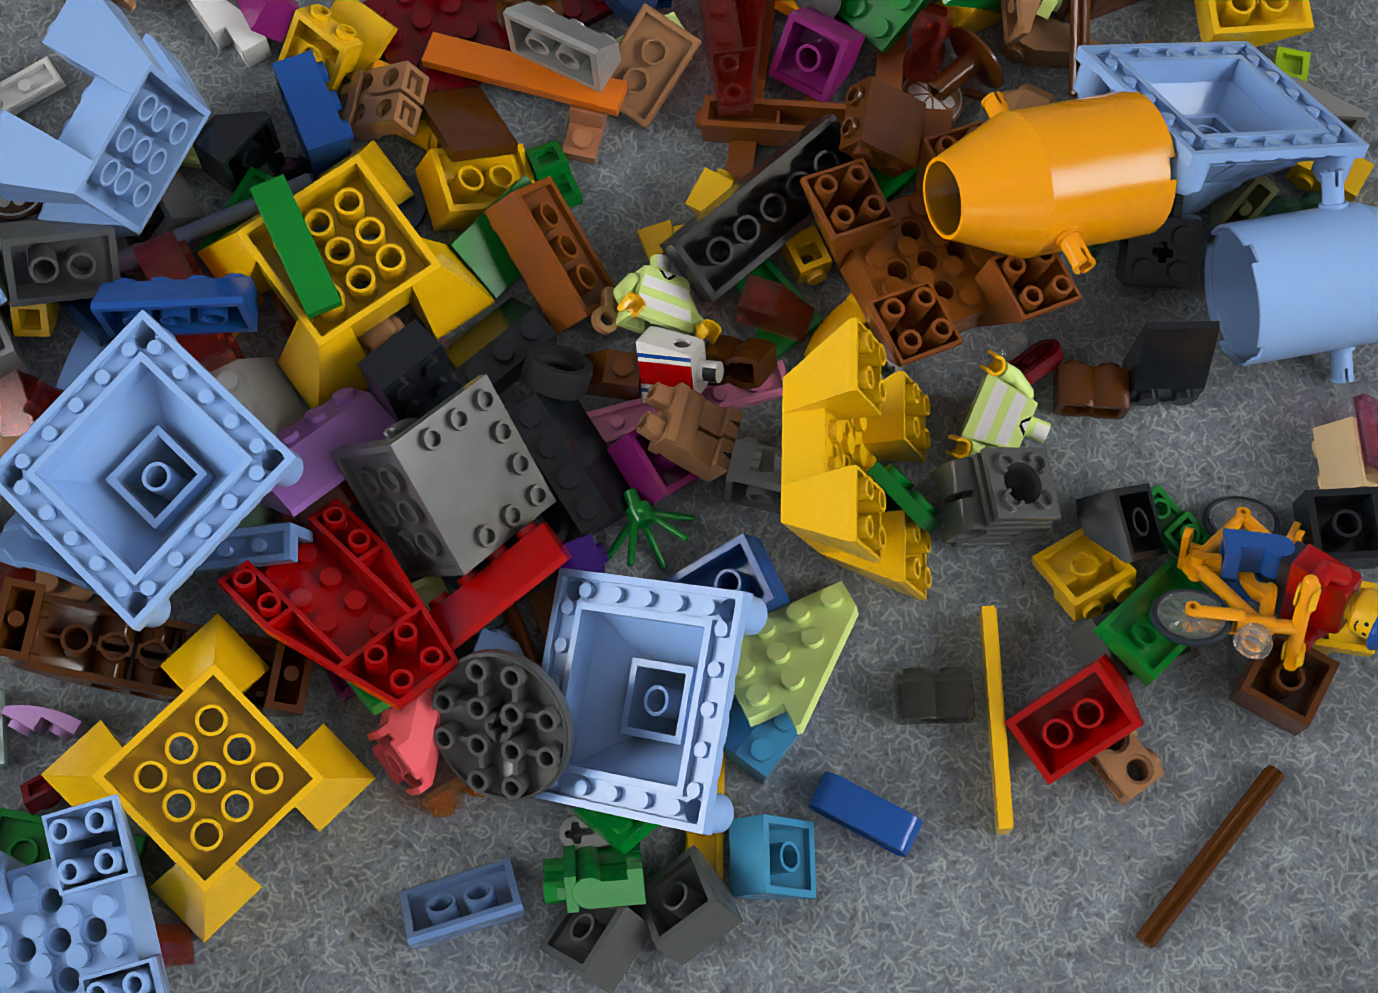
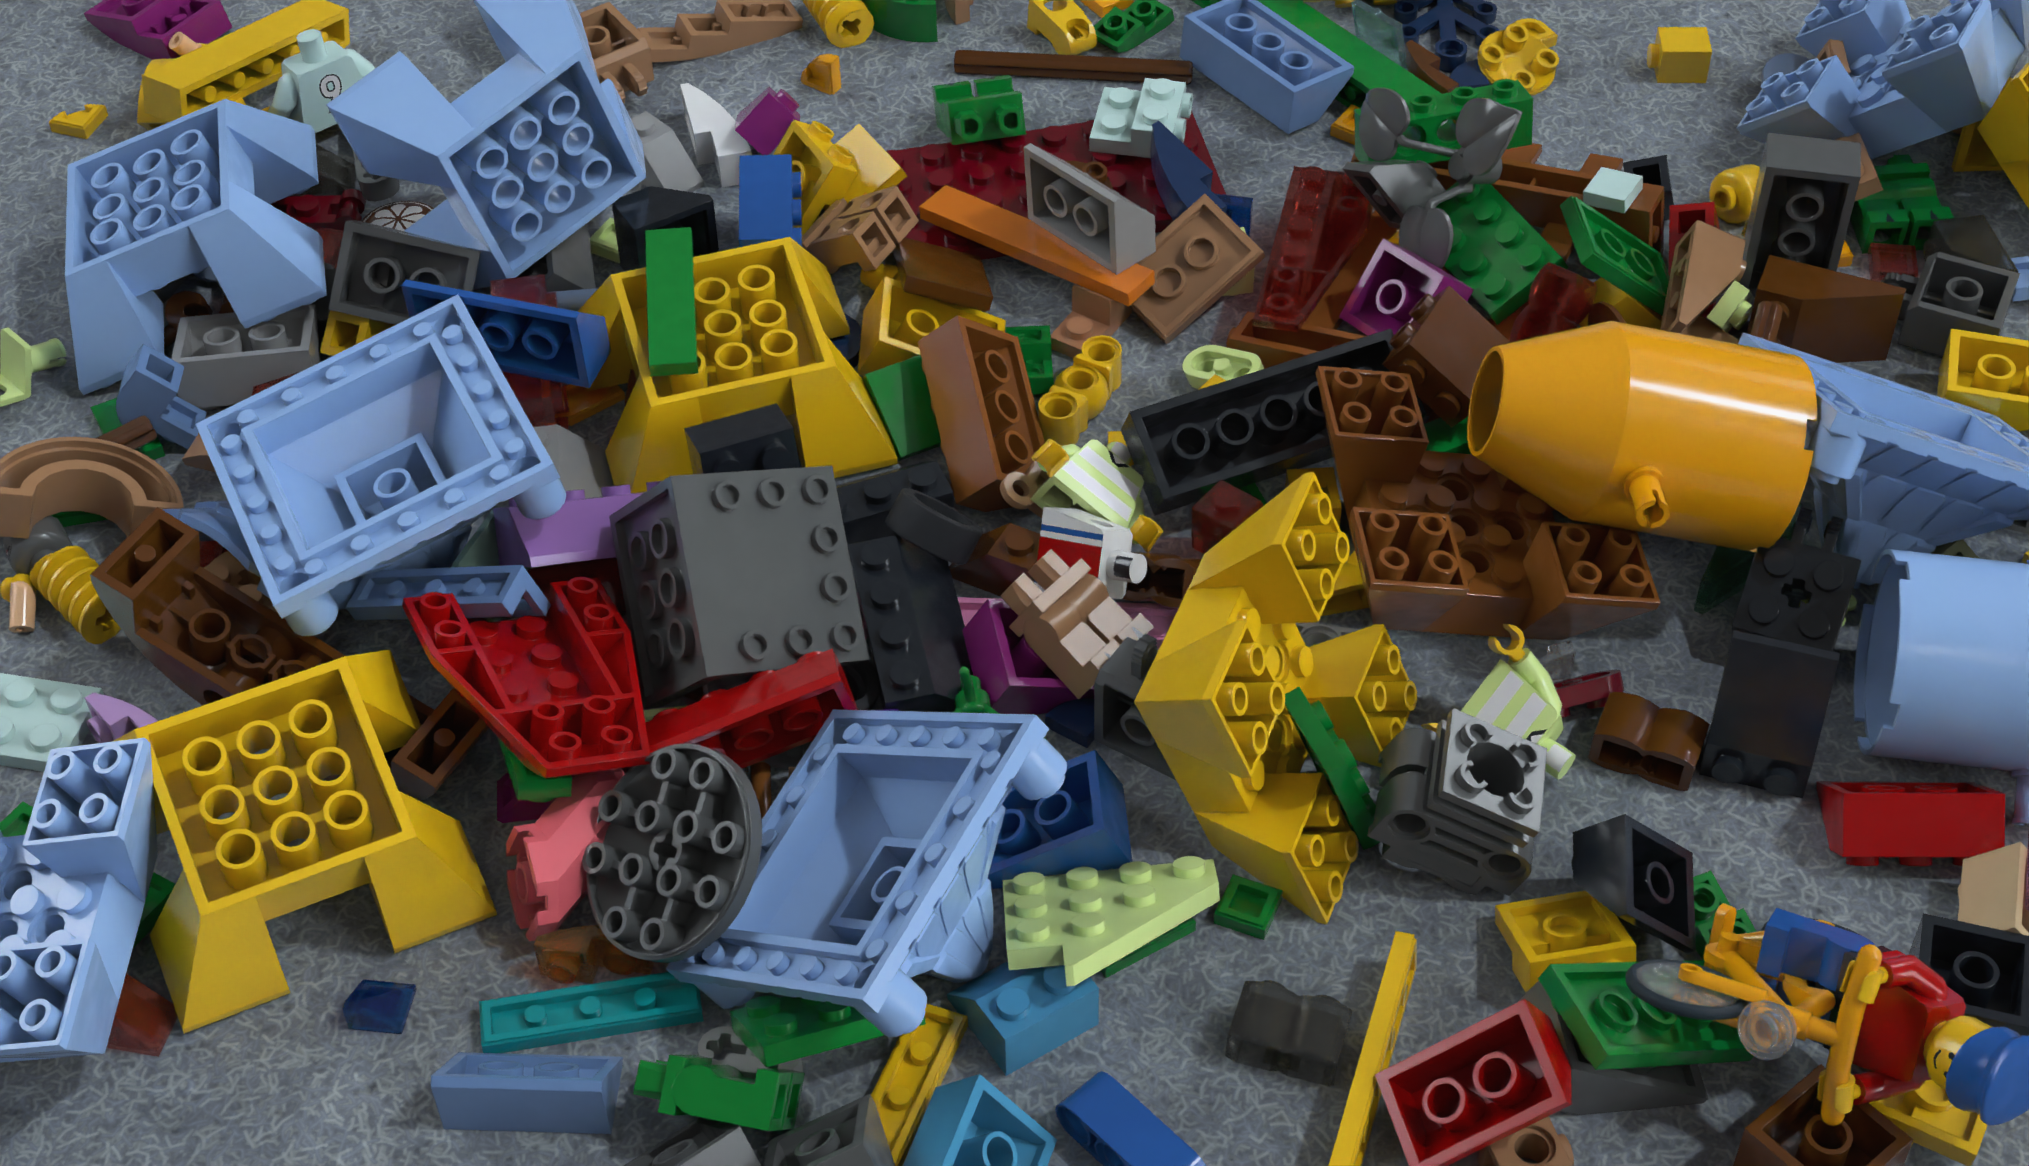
camera: 25 degrees right, 25 degrees down
(202, 64) = (665, 157): none -> light grey slope
(329, 875) = (379, 1006): none -> clear blue slope
(468, 836) = (587, 1012): none -> teal tile
(606, 186) = (1081, 390): none -> yellow piece
(706, 150) = (1218, 360): none -> yellowish green plate
(708, 493) = (1073, 720): none -> dark blue tile
(873, 605) = (1248, 907): none -> green tile
(1271, 401) = (1911, 820): none -> red slope

